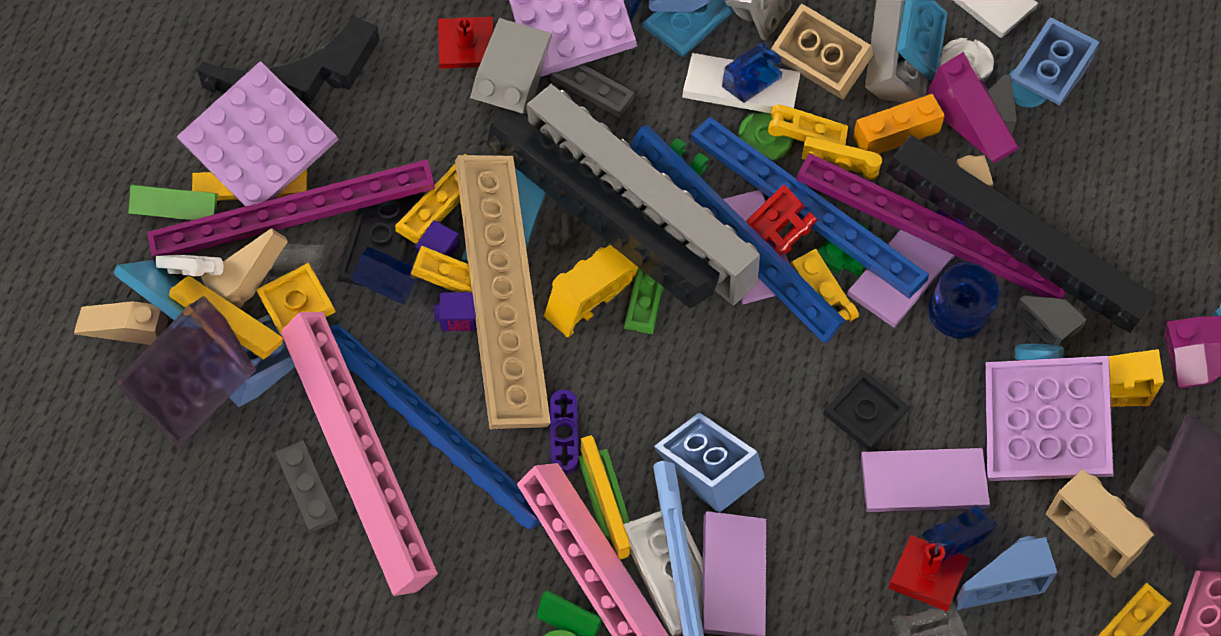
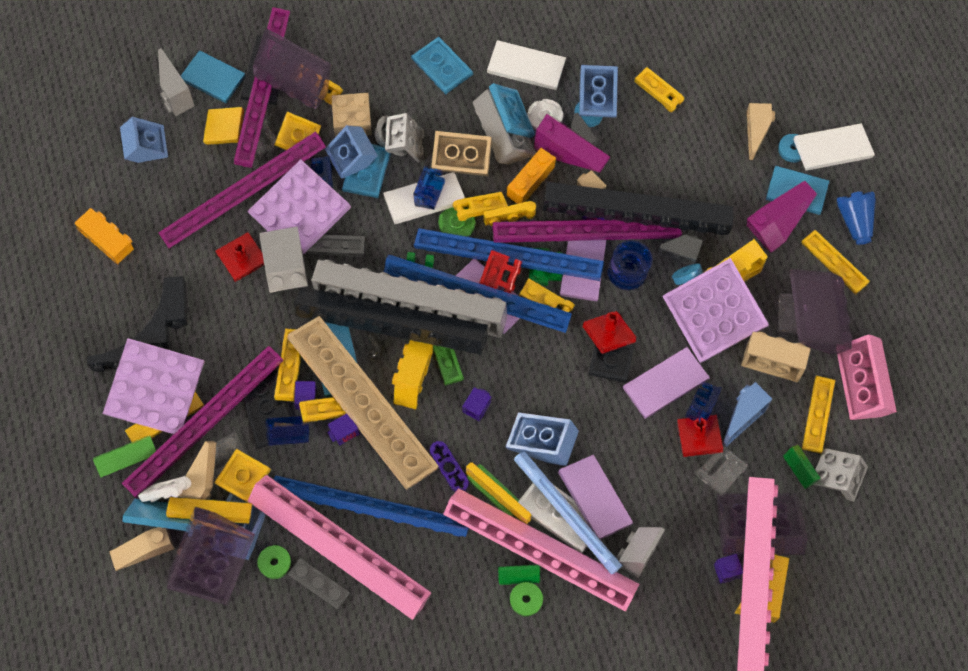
camera: 30 degrees left, 5 degrees up
(273, 440) = (274, 571): none -> bright green piece
(649, 371) = (477, 403): none -> dark purple brick
(884, 371) = (609, 332): none -> red tile
(1143, 102) = (659, 89): none -> yellow plate

